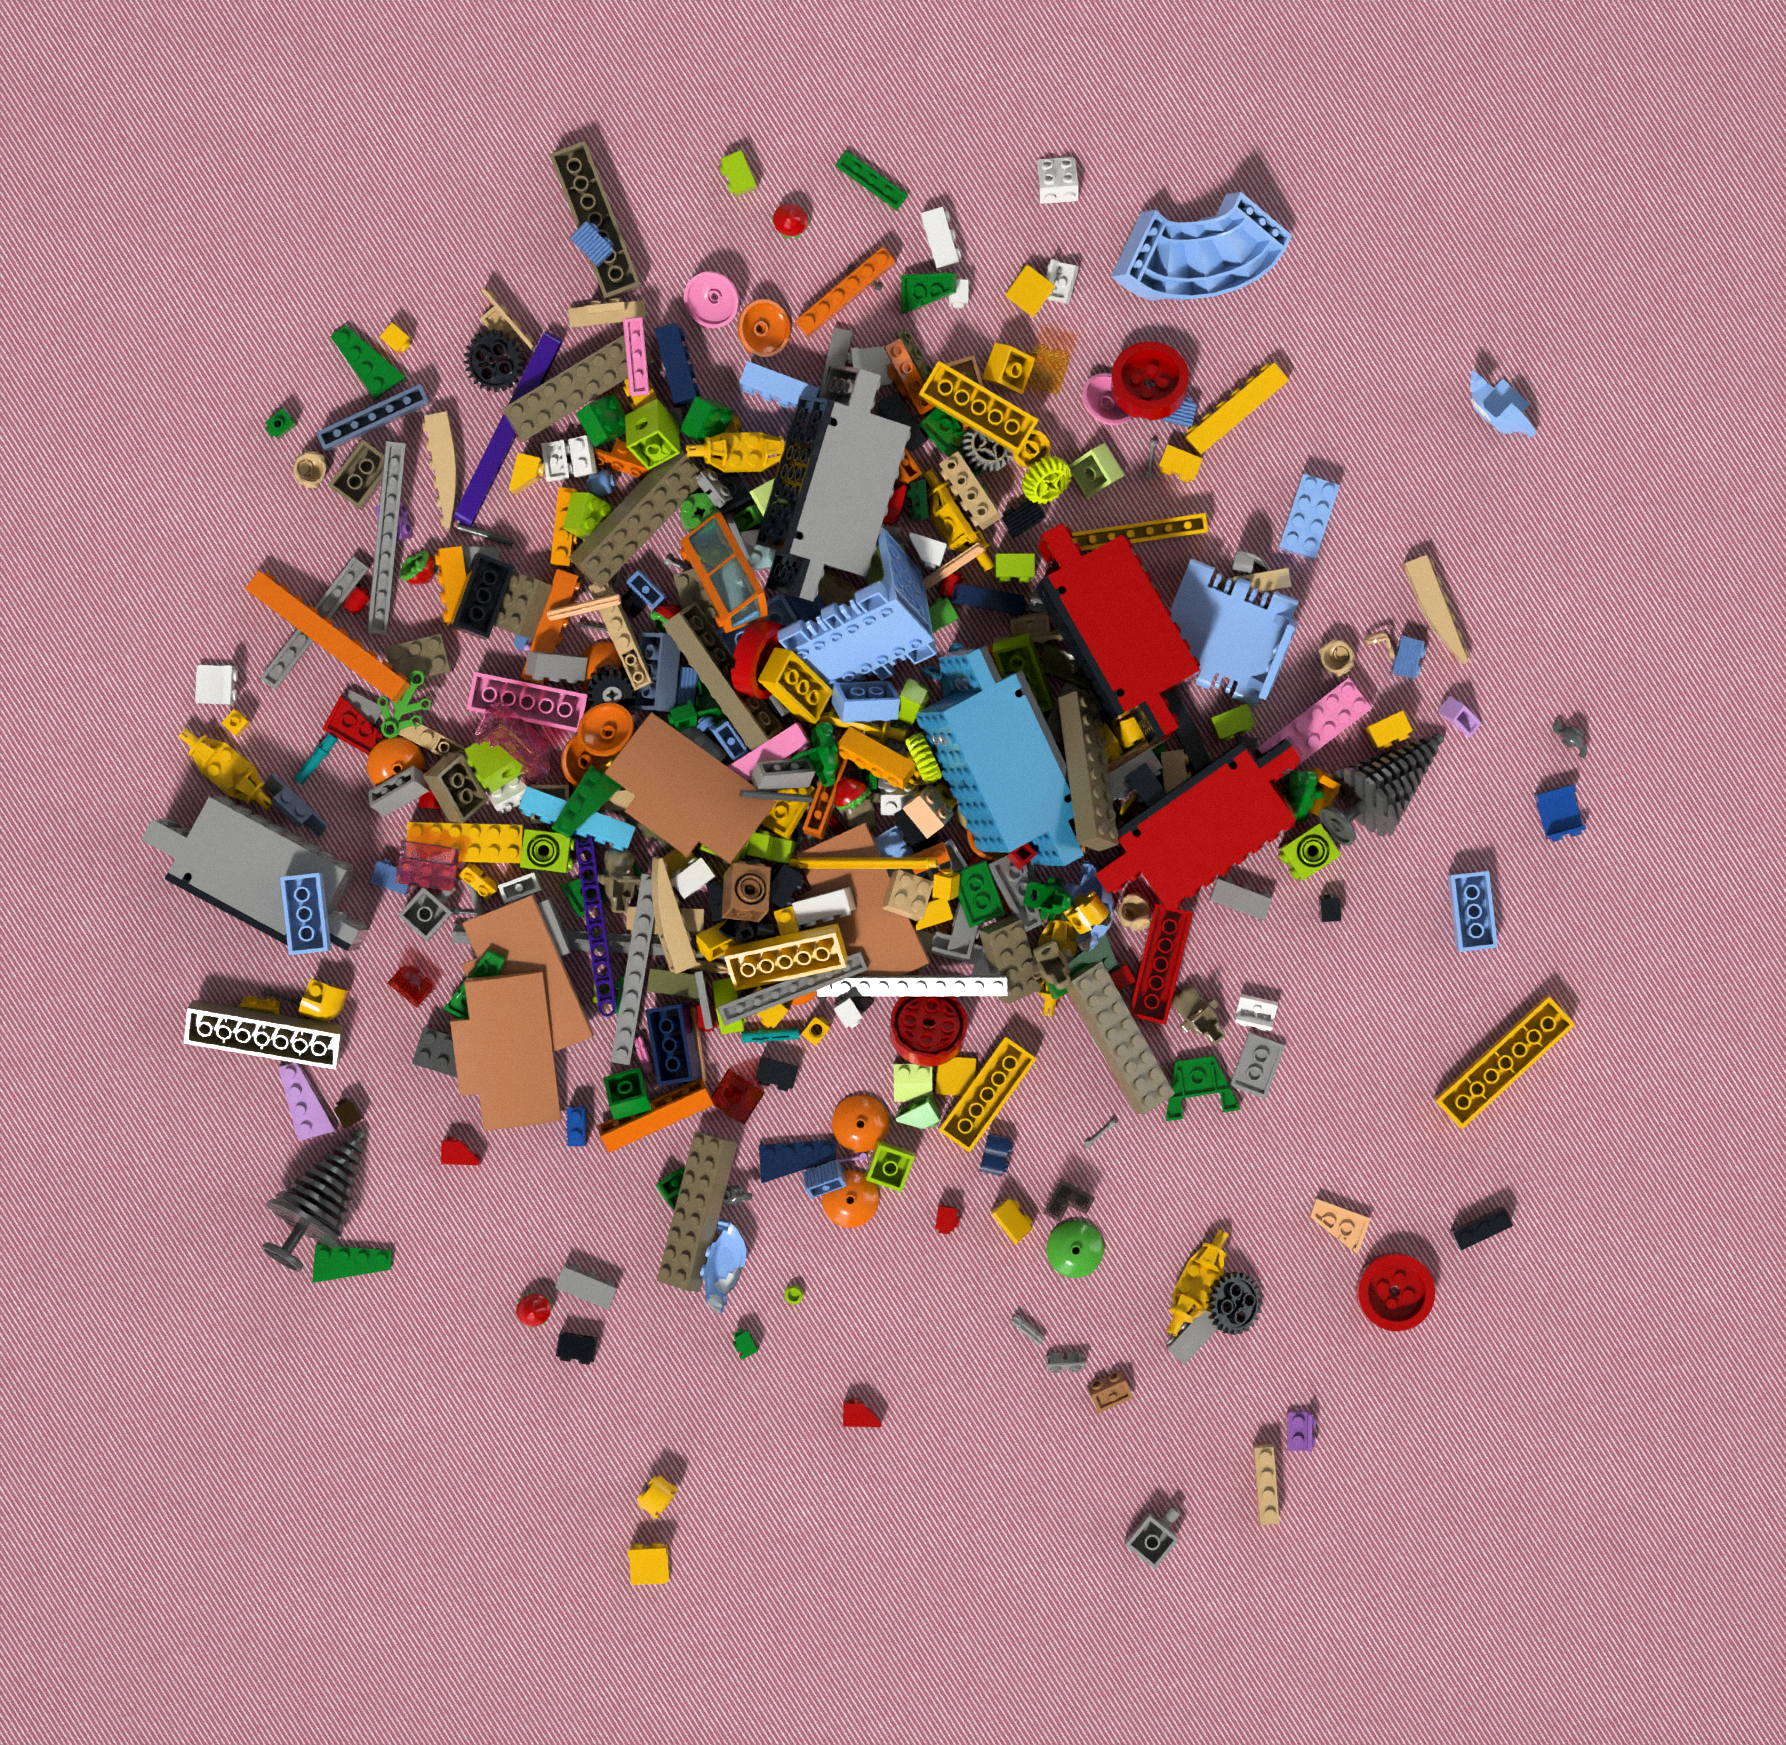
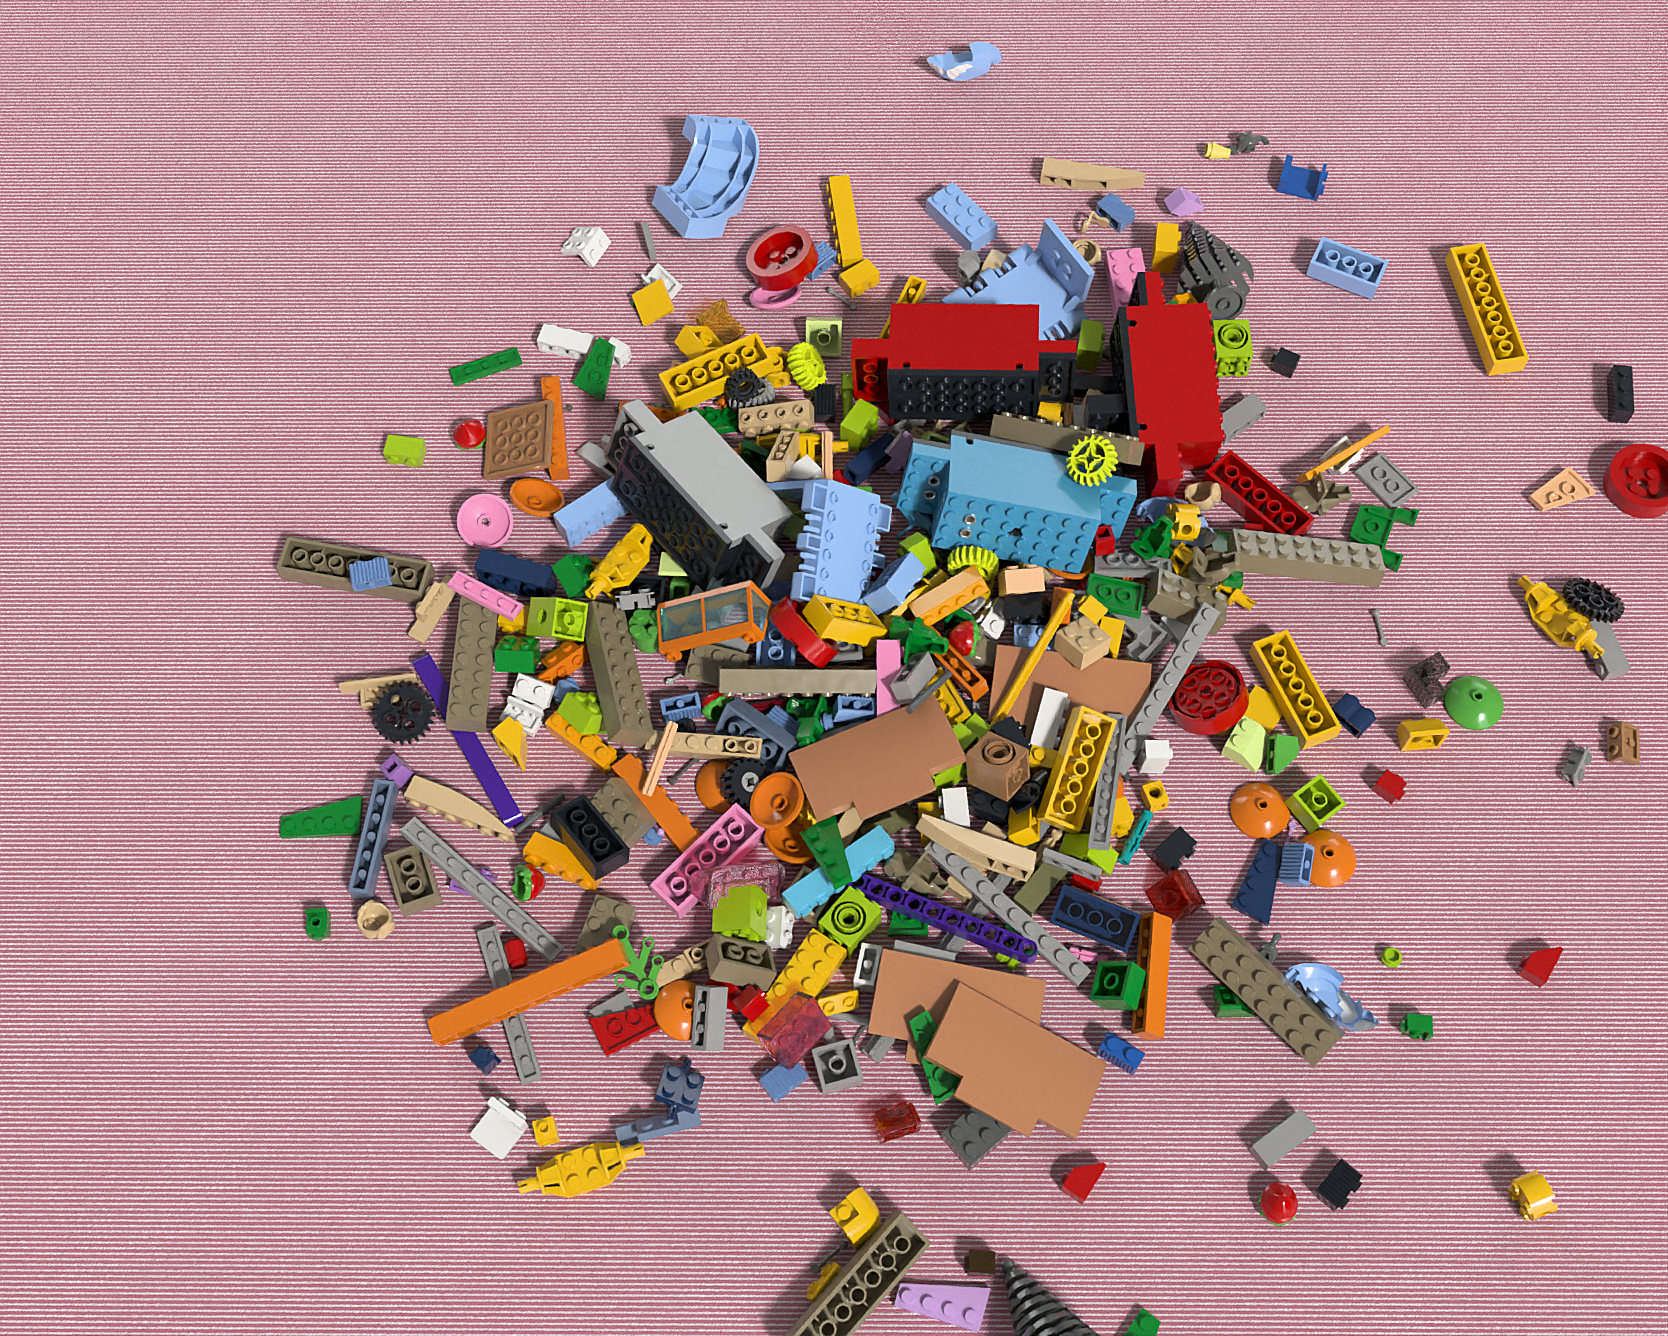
camera: 55 degrees left, 25 degrees down
(238, 864) = (701, 1190): light grey piece -> none
(259, 635) = (484, 1059): none -> dark blue brick
(305, 913) = (767, 1150): light blue brick -> none
(314, 760) = (626, 1071): teal pin -> none
(331, 803) = (679, 1088): none -> dark blue plate
(396, 338) = (324, 783): yellow brick -> none
(428, 817) = (751, 1002): none -> red brick
(442, 393) = (397, 770): none -> medium lavender brick
(556, 666) = (693, 814): light grey brick -> none
(648, 1563) = (1597, 1249): yellow bracket -> none
(808, 272) = (519, 440): none -> medium nougat piece
(923, 528) = (783, 456): none -> tan brick
(978, 442) = (747, 391): none -> black tyre
(1011, 622) = (898, 451): none -> lavender piece
(1027, 1329) = (1530, 779): light grey axle -> none
(1032, 541) = (847, 393): none -> lime pin
(1075, 808) = (1079, 458): none -> neon yellow gear
(1101, 234) = (648, 241): none -> light grey tile
(1253, 1014) = (1344, 453): none -> light orange tile
(1543, 712) = (1216, 151): none -> light yellow cone

